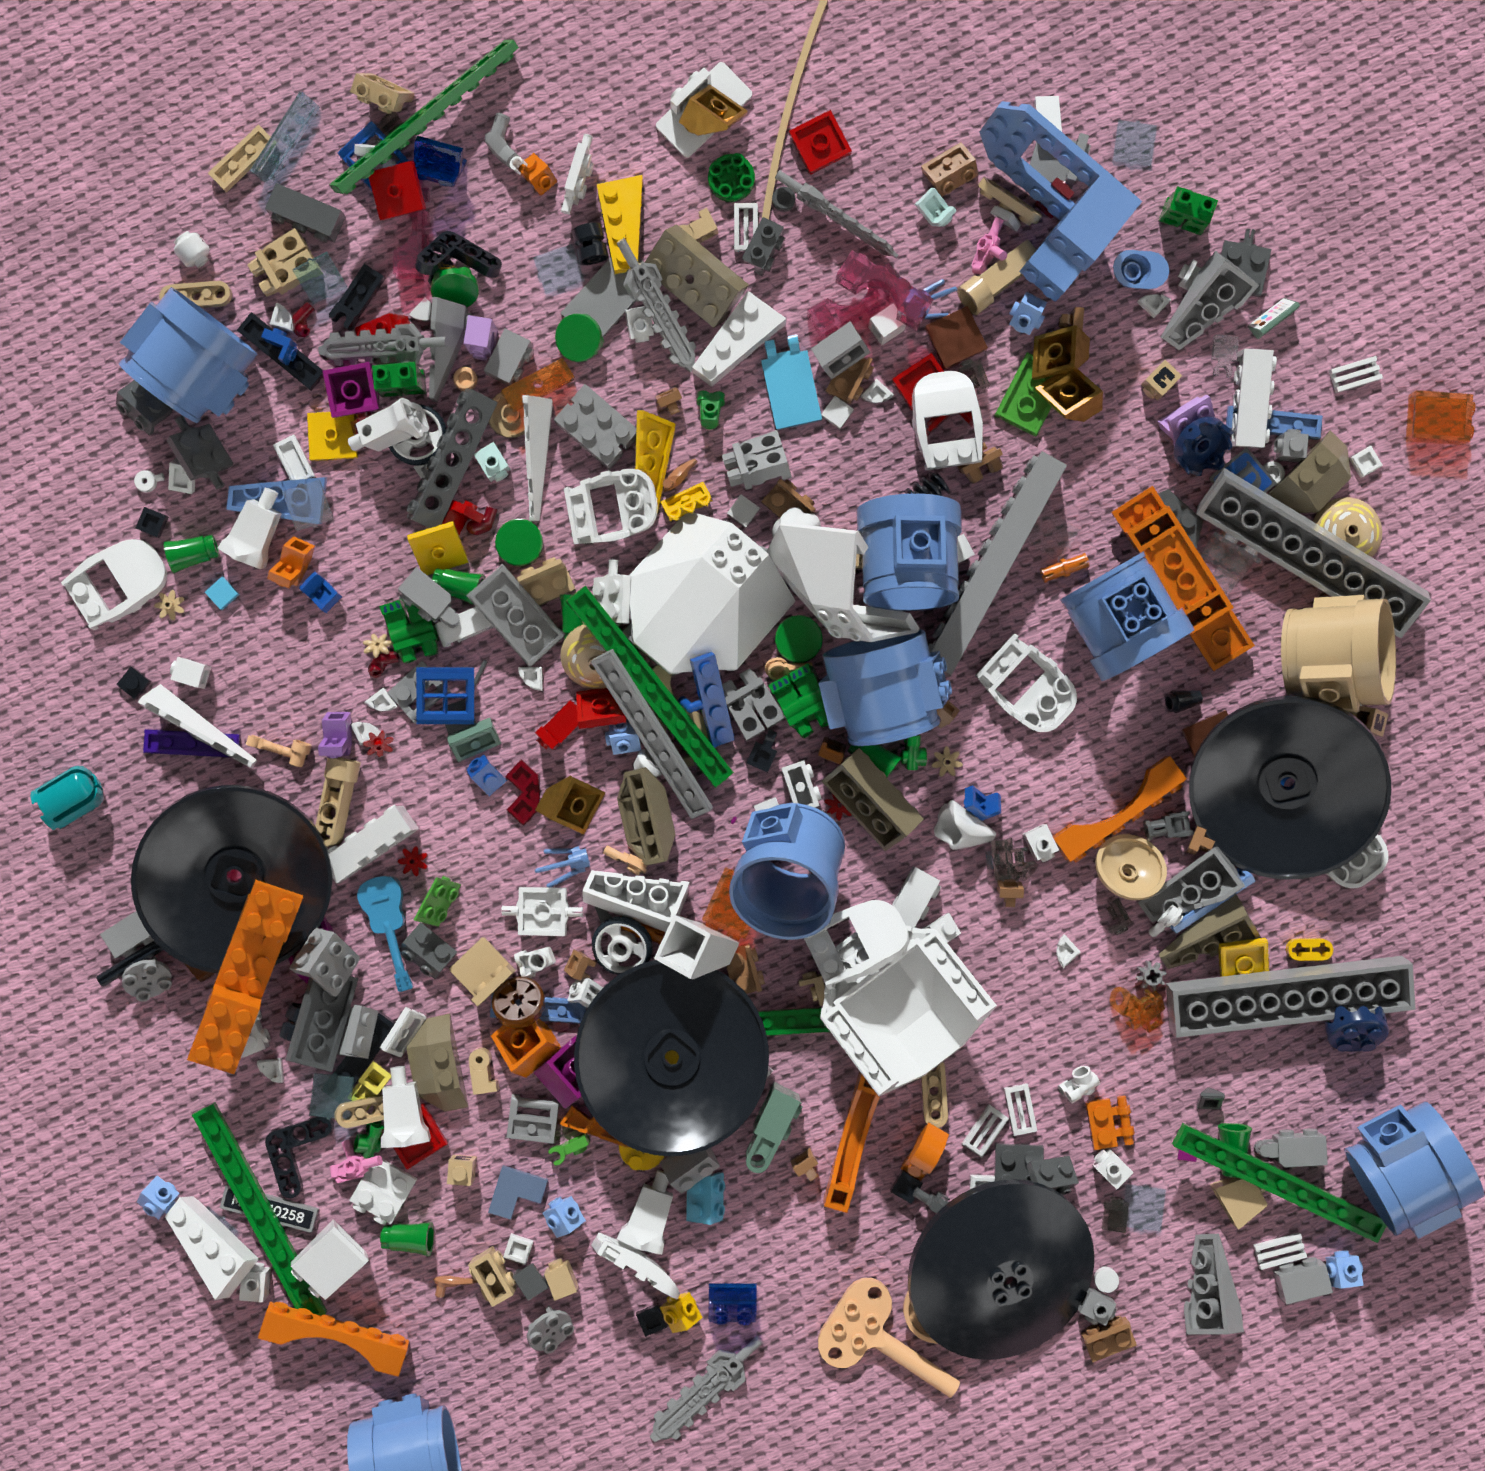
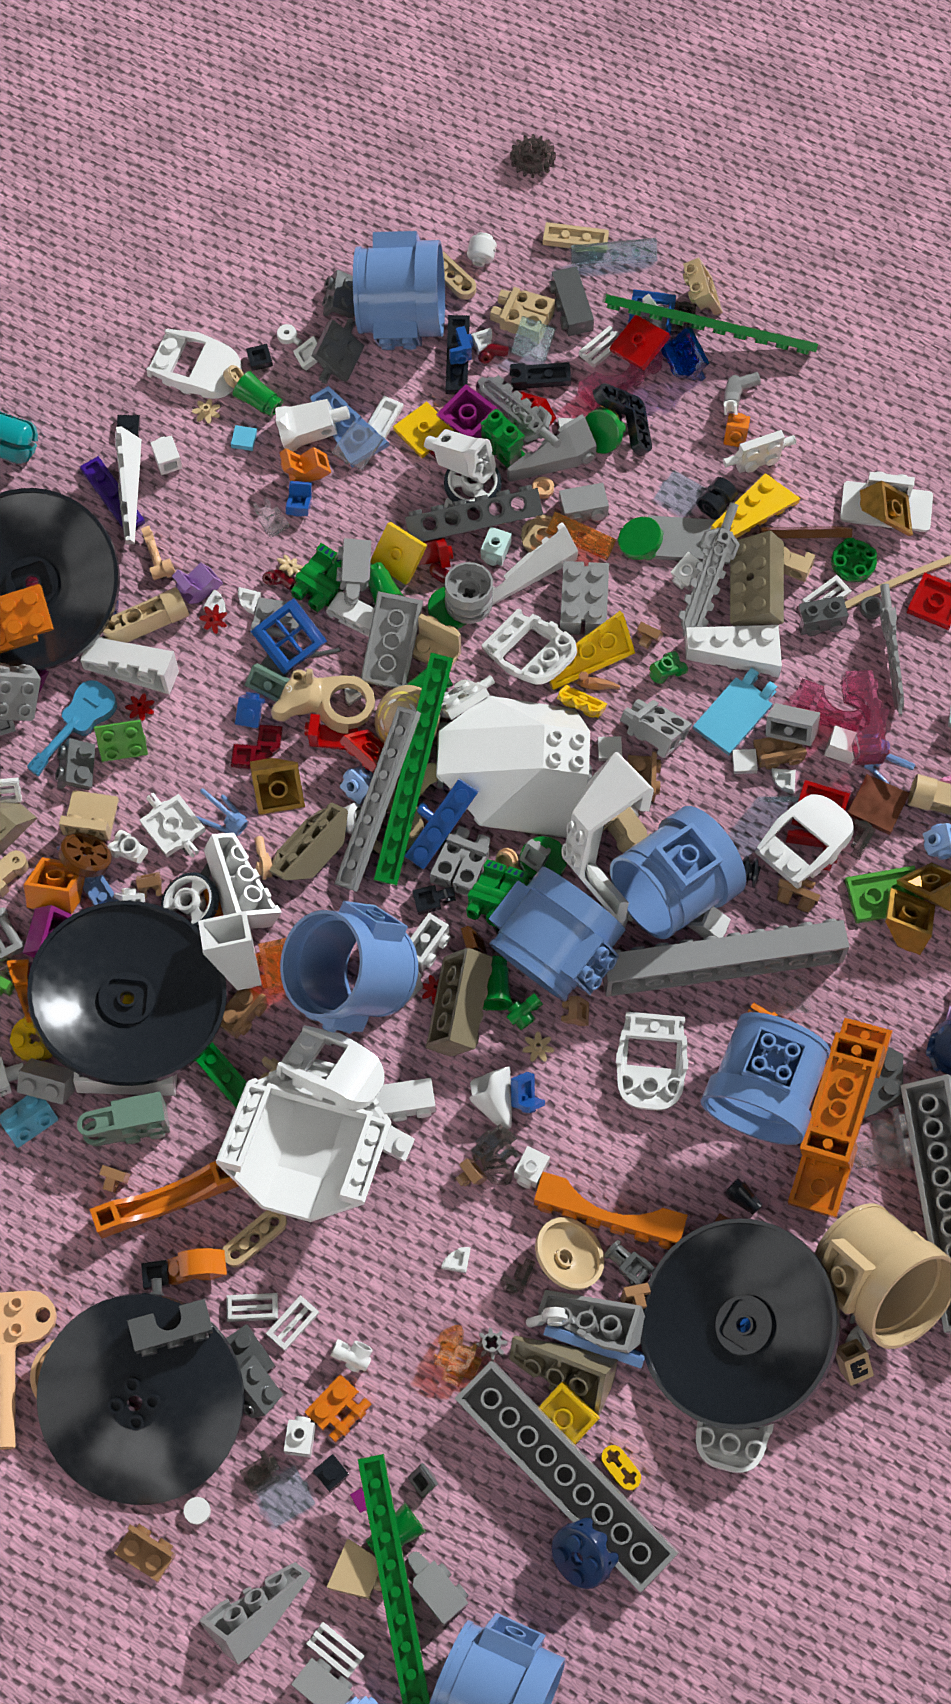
camera: 50 degrees right, 20 degrees down
(130, 139) = (532, 156): none -> clear smoke gear
(155, 559) = (232, 375): none -> tan tile
(322, 628) = (271, 520): none -> clear plate
(370, 243) = (588, 358): none -> white tile
(480, 337) = (582, 469): lavender brick -> none
(513, 716) = (311, 694): none -> tan animal
(518, 510) = (468, 592): none -> light grey wheel
(677, 196) = (810, 532): none -> reddish brown tile
(795, 645) = (534, 855): none -> light grey tile
(894, 414) = (778, 798): none -> clear light blue piece
(977, 1242) = (194, 1325): none -> dark grey arch
(1097, 1307) = (166, 1517): light grey brick -> none
(1152, 1162) = (331, 1472): none -> black plate

